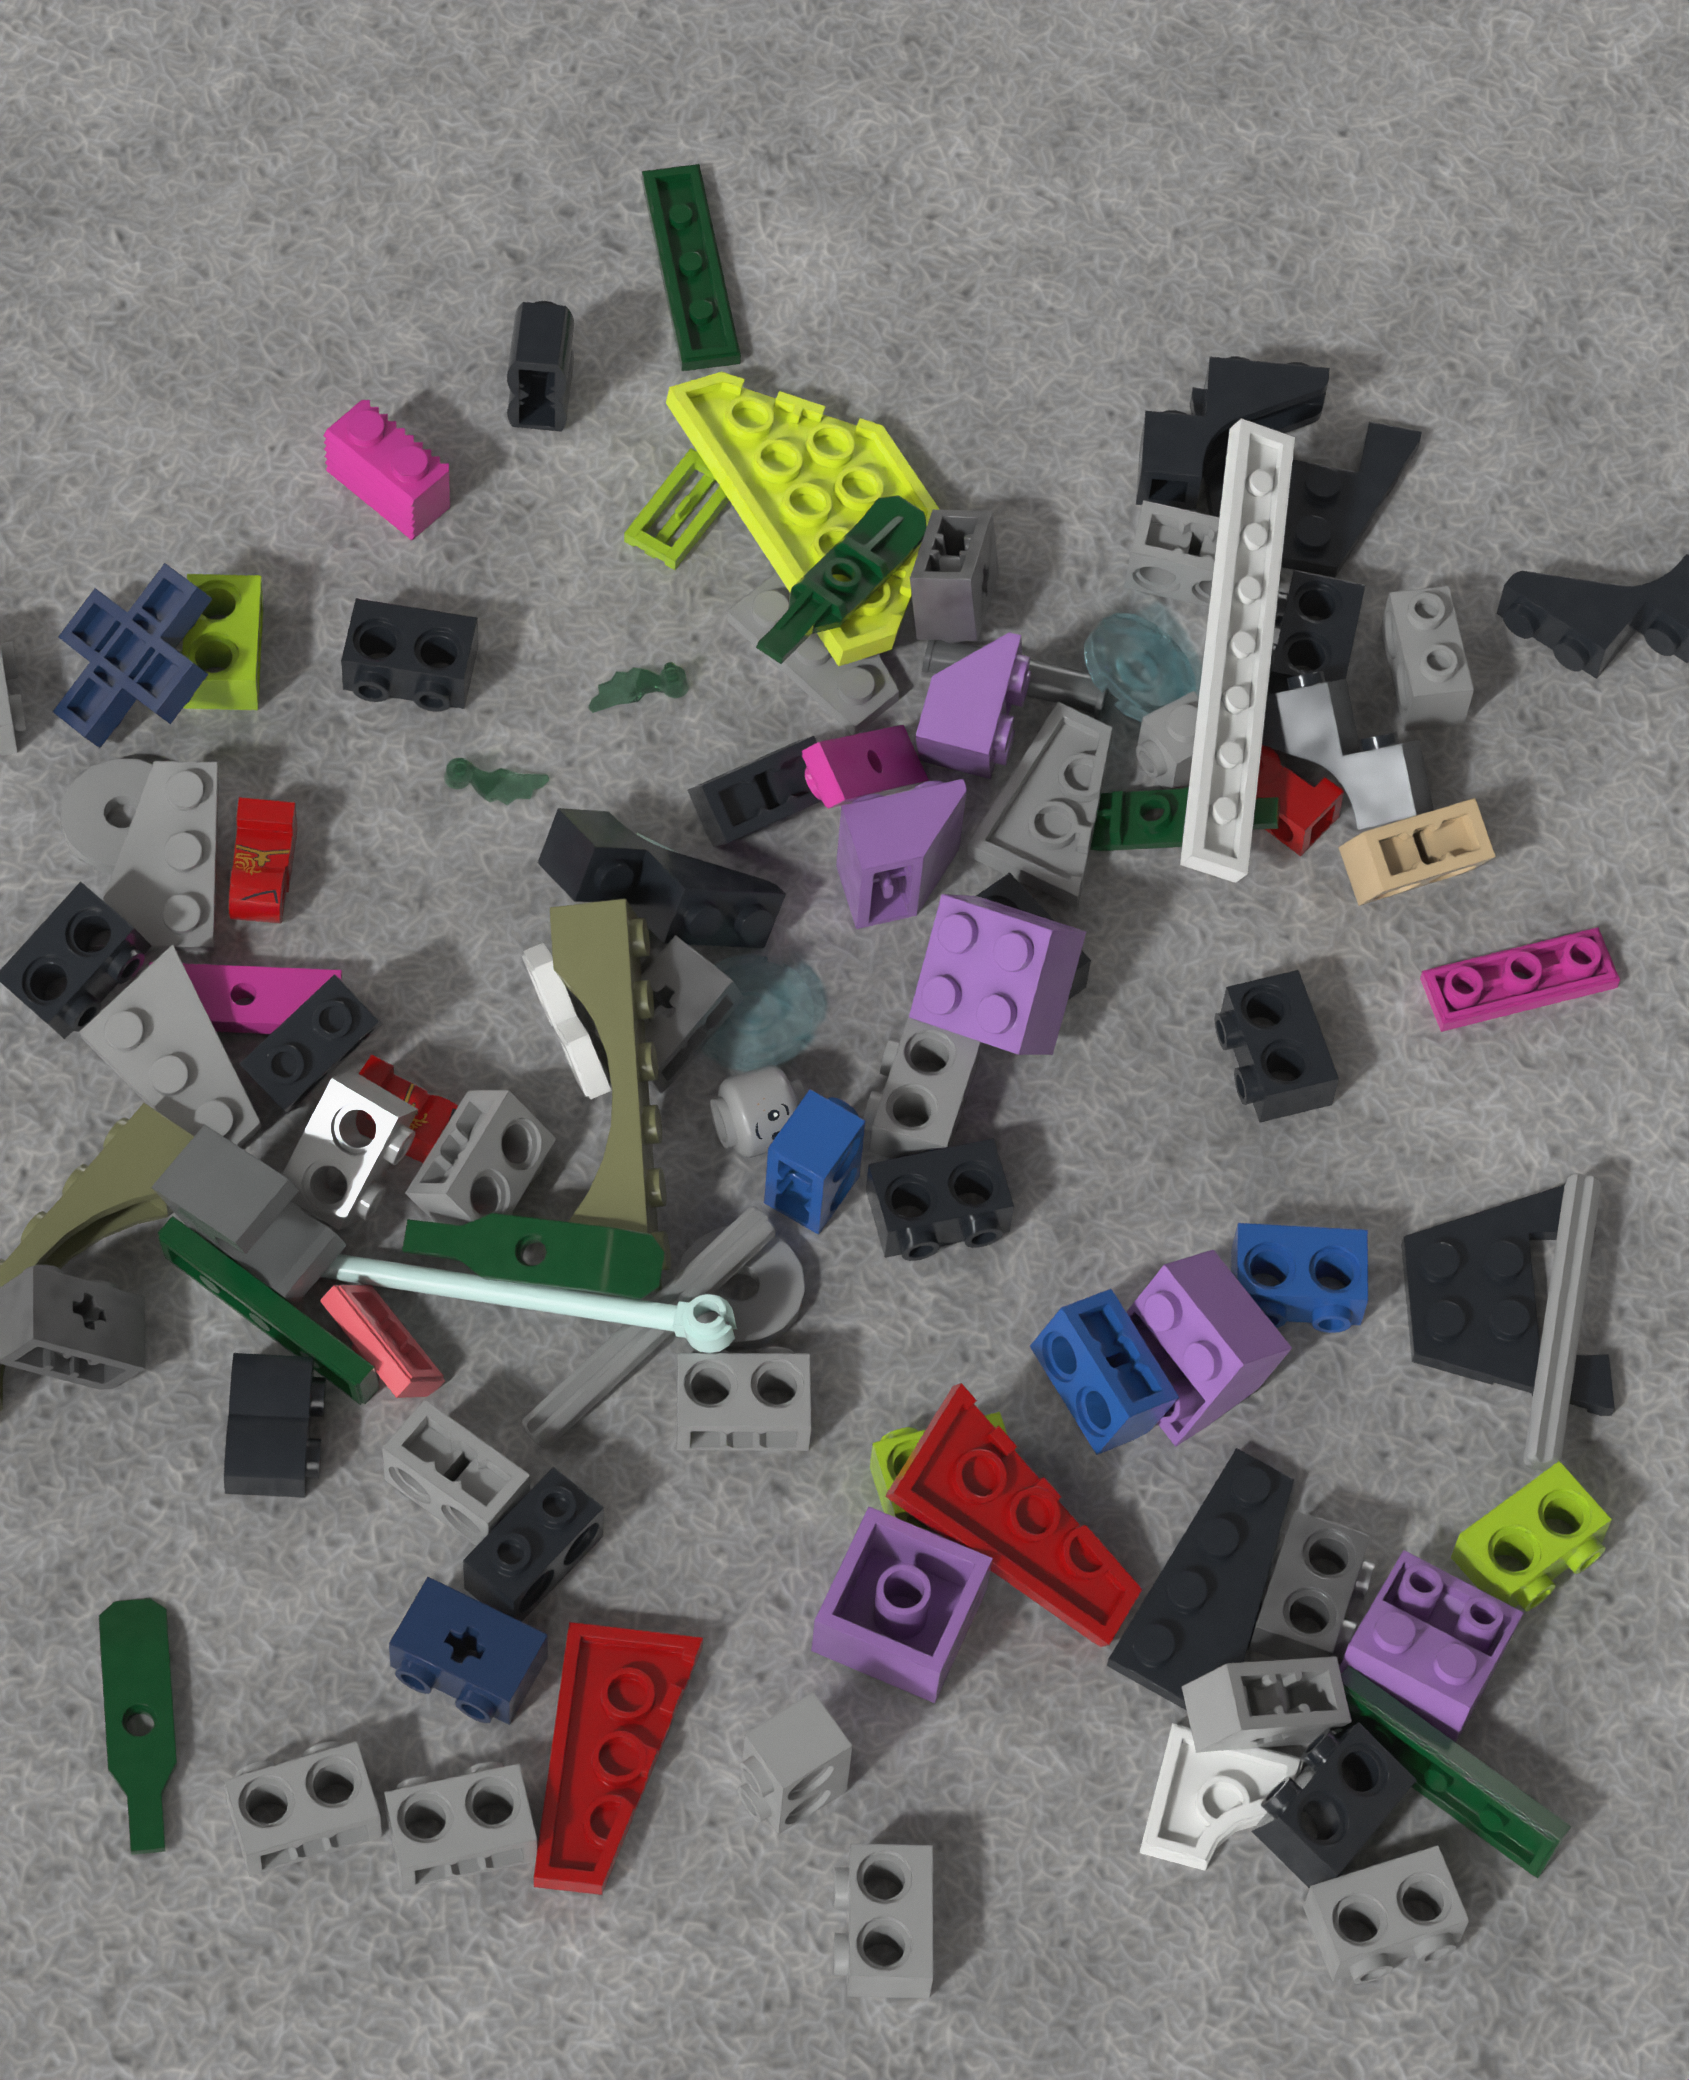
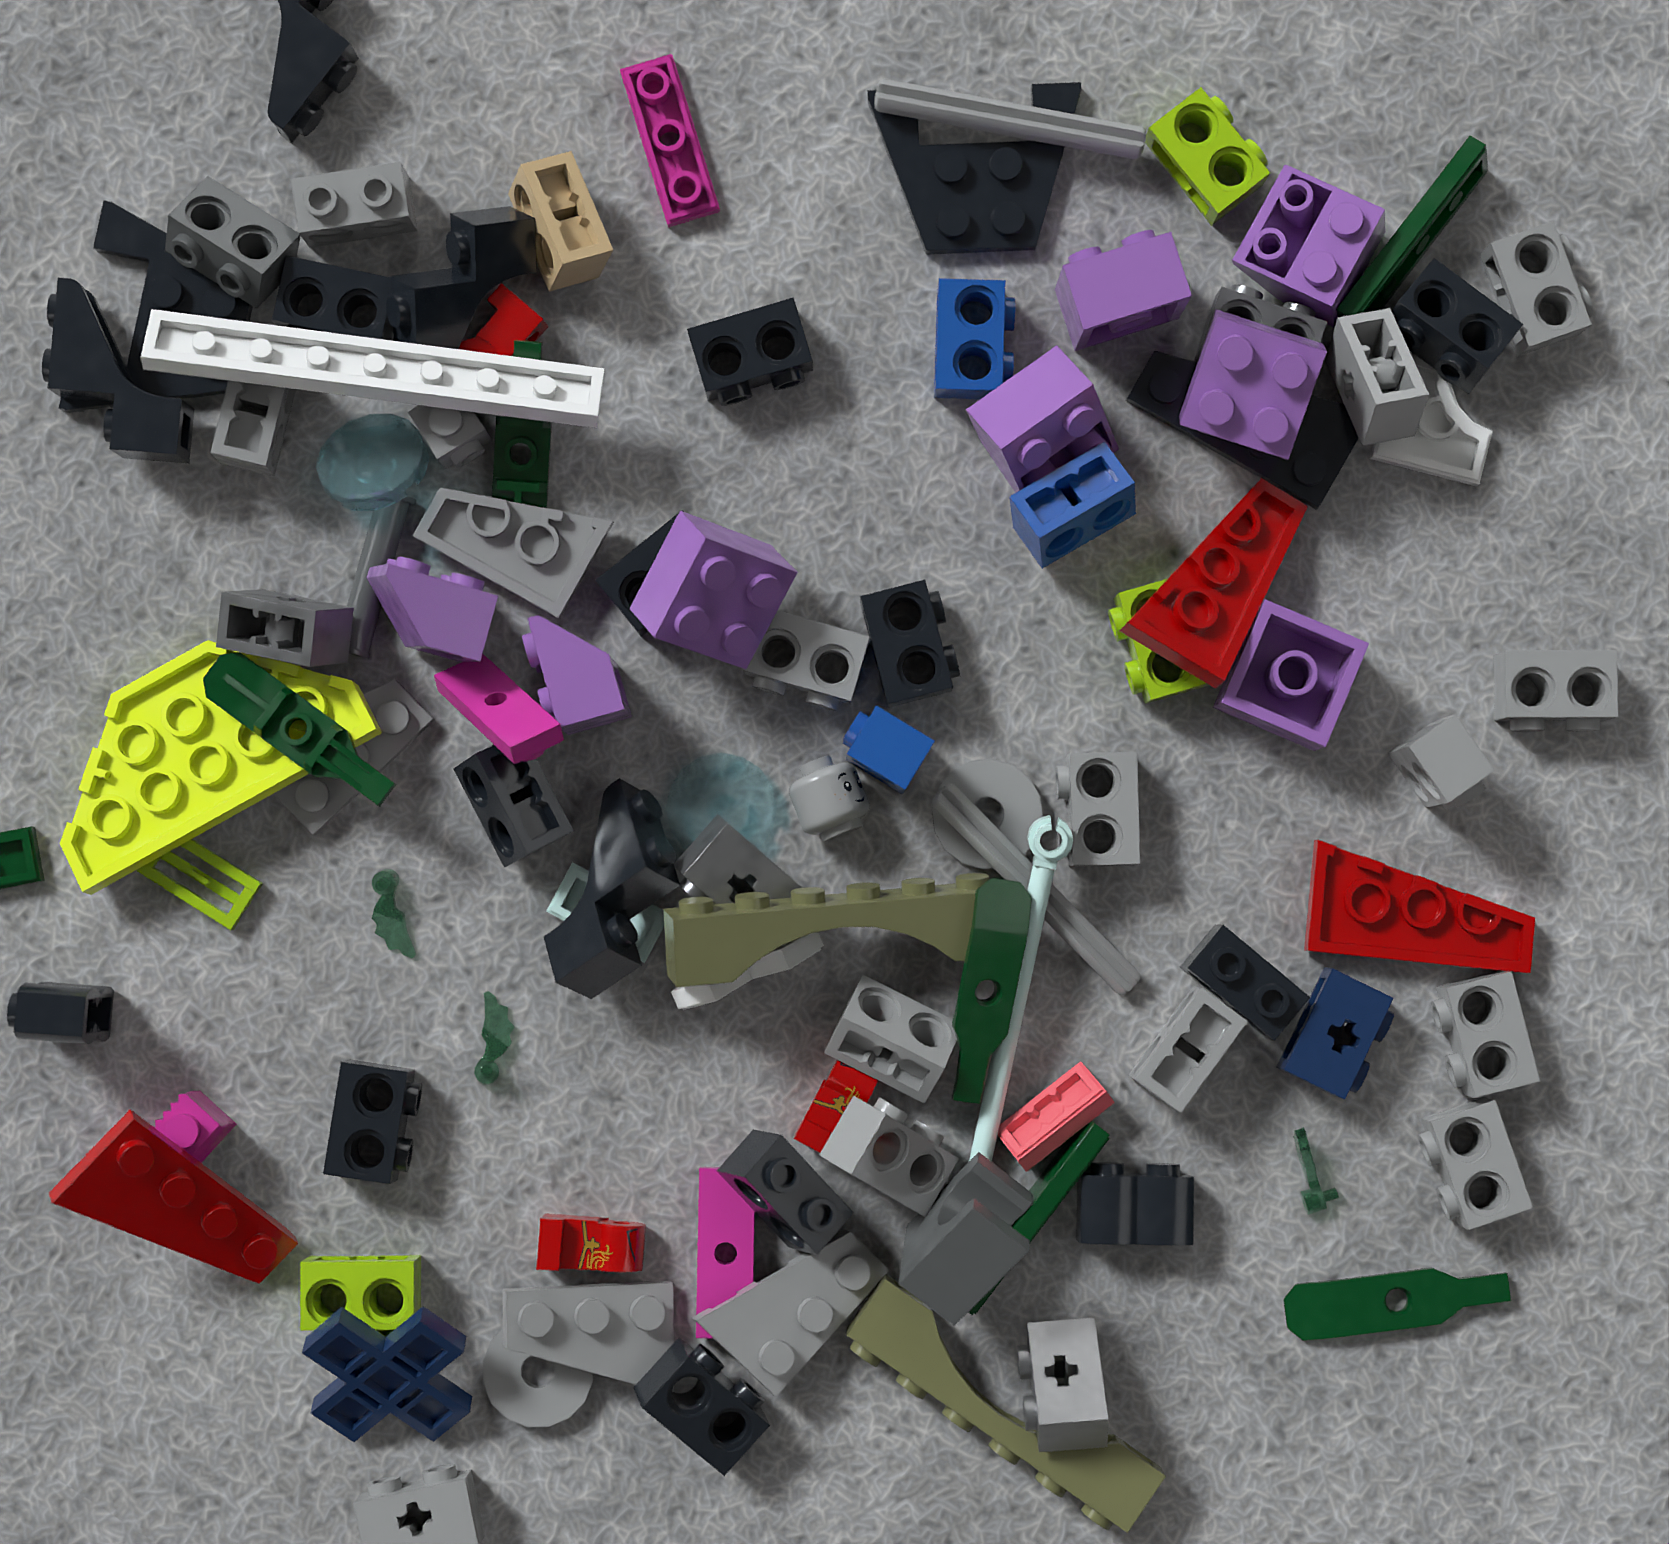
camera: 85 degrees left, 25 degrees up
(268, 1631) = (1312, 1198): none -> clear green piece
(338, 449) = (168, 1197): none -> red wing
(1250, 1547) = (1252, 384): none -> medium lavender brick
(1360, 1422) = (1122, 289): none -> medium lavender brick
(1387, 528) = (230, 241): none -> dark grey brick

